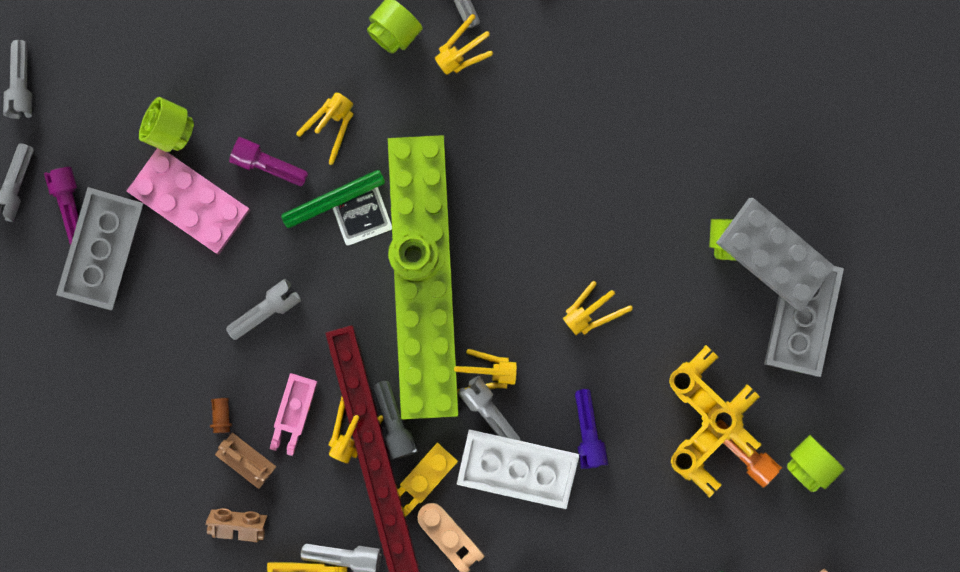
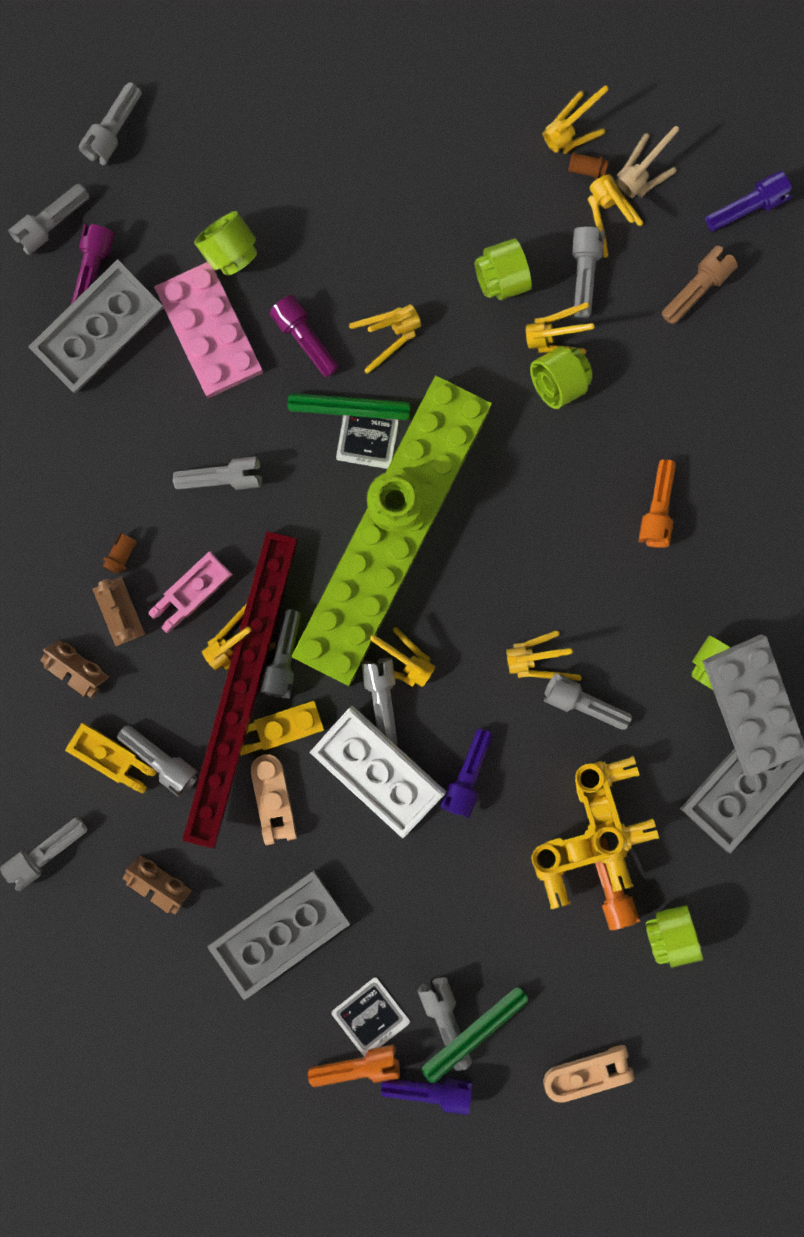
camera: 30 degrees right, 0 degrees up
(485, 82) = (561, 376): none -> lime piece
(623, 156) = (657, 524): none -> orange piece
(629, 327) = (568, 696): none -> light grey piece

